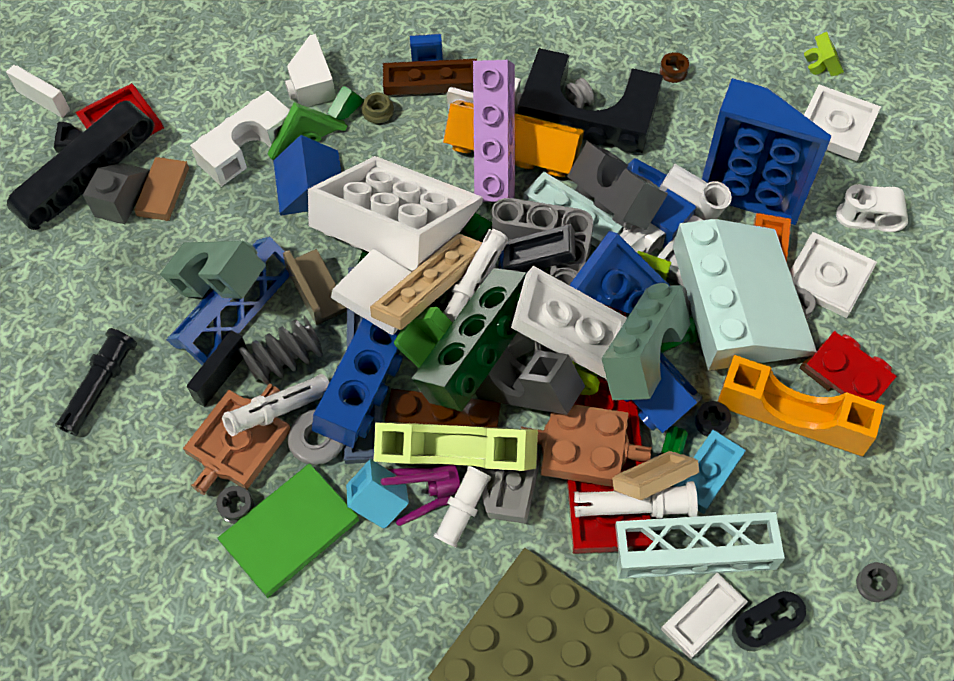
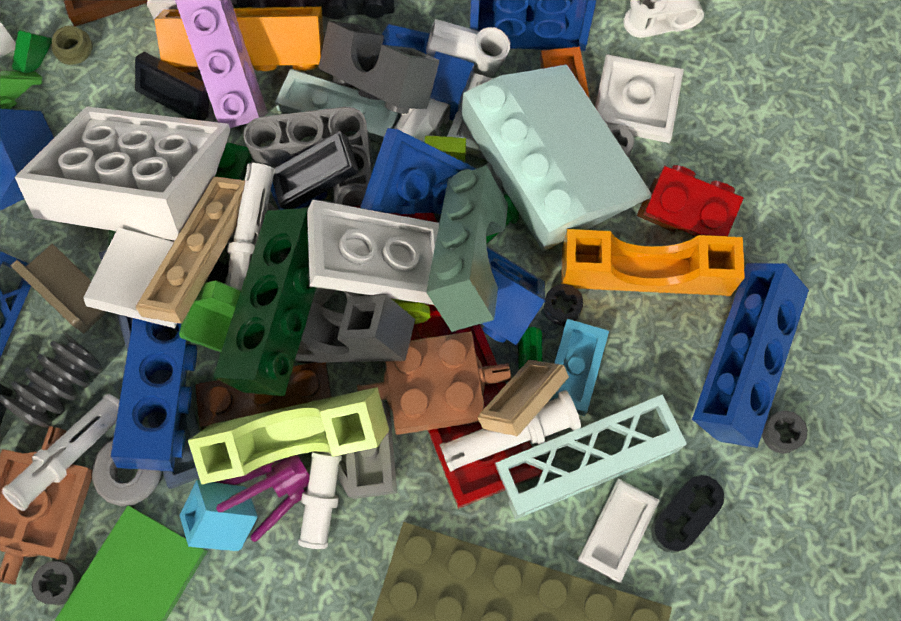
camera: 20 degrees left, 10 degrees up
(445, 159) = (171, 87): none -> black tile
(865, 506) = (751, 354): none -> blue brick

